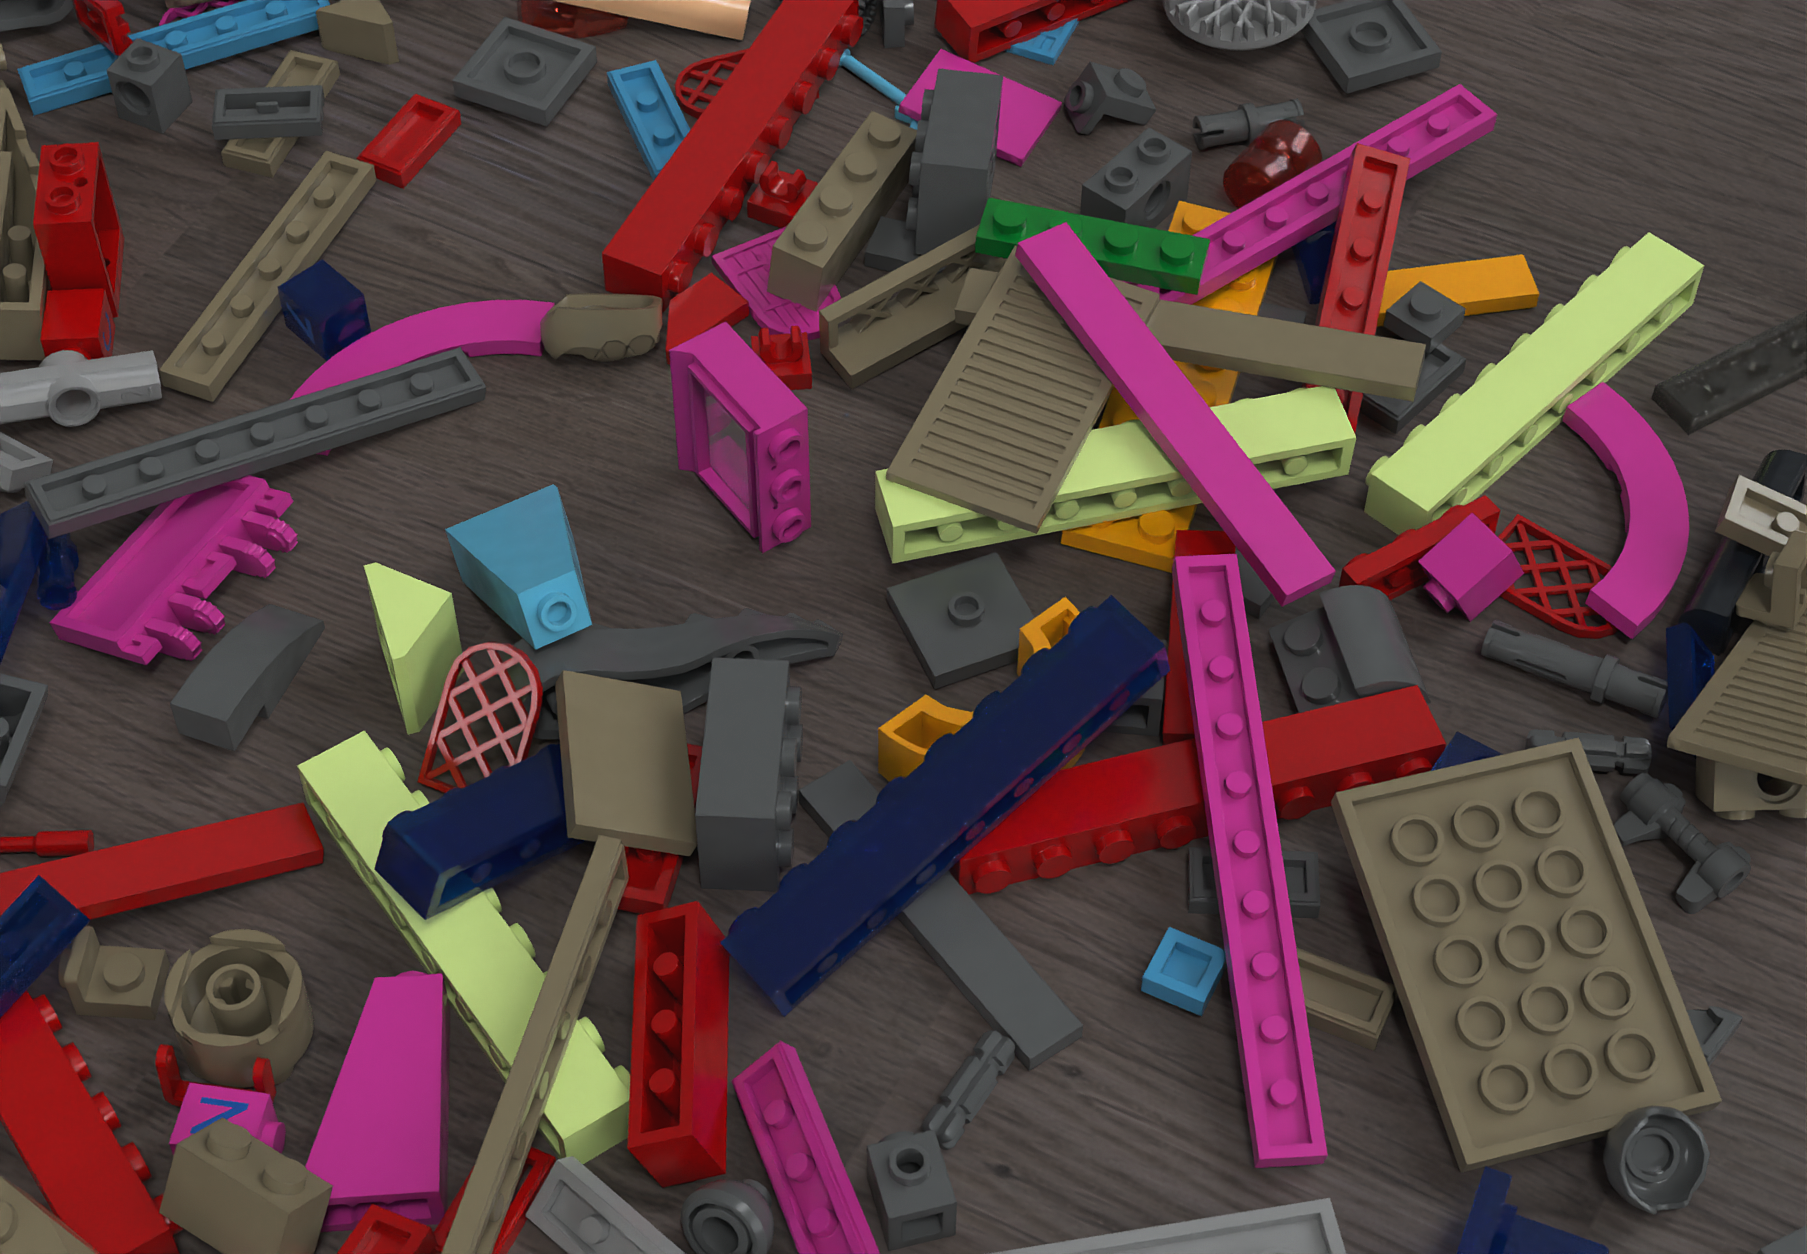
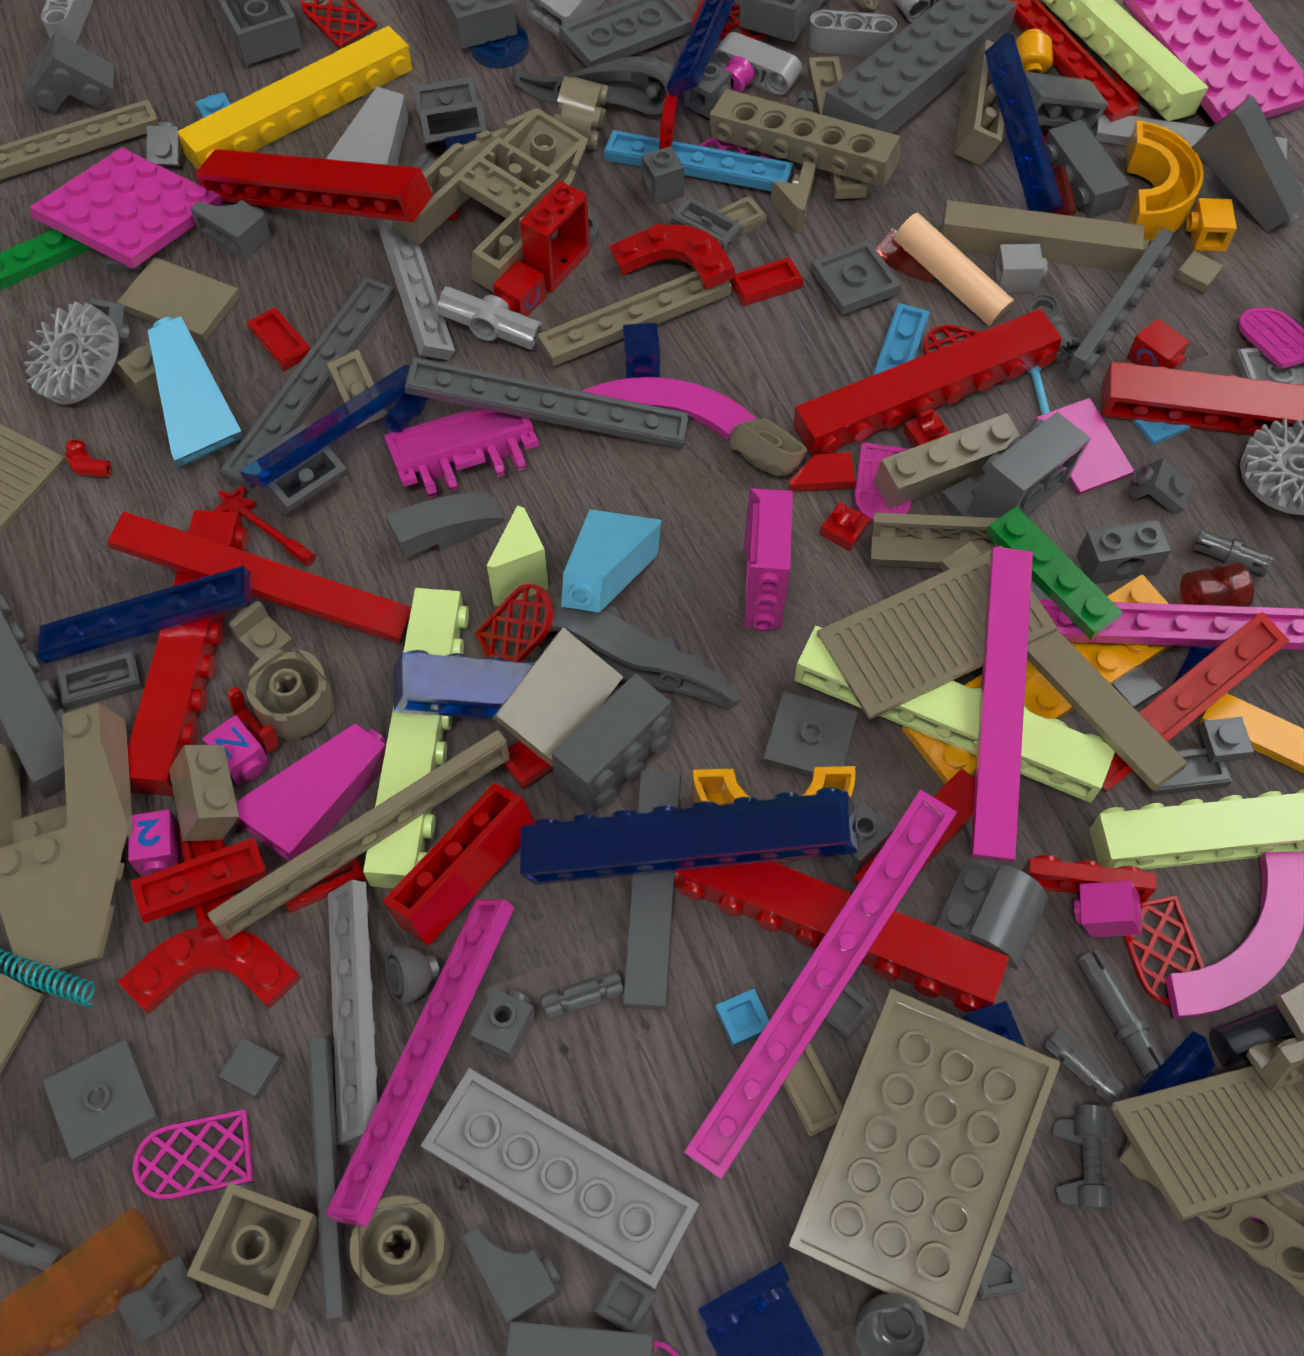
camera: 40 degrees right, 10 degrees up
(258, 150) = (675, 242): none -> red plate

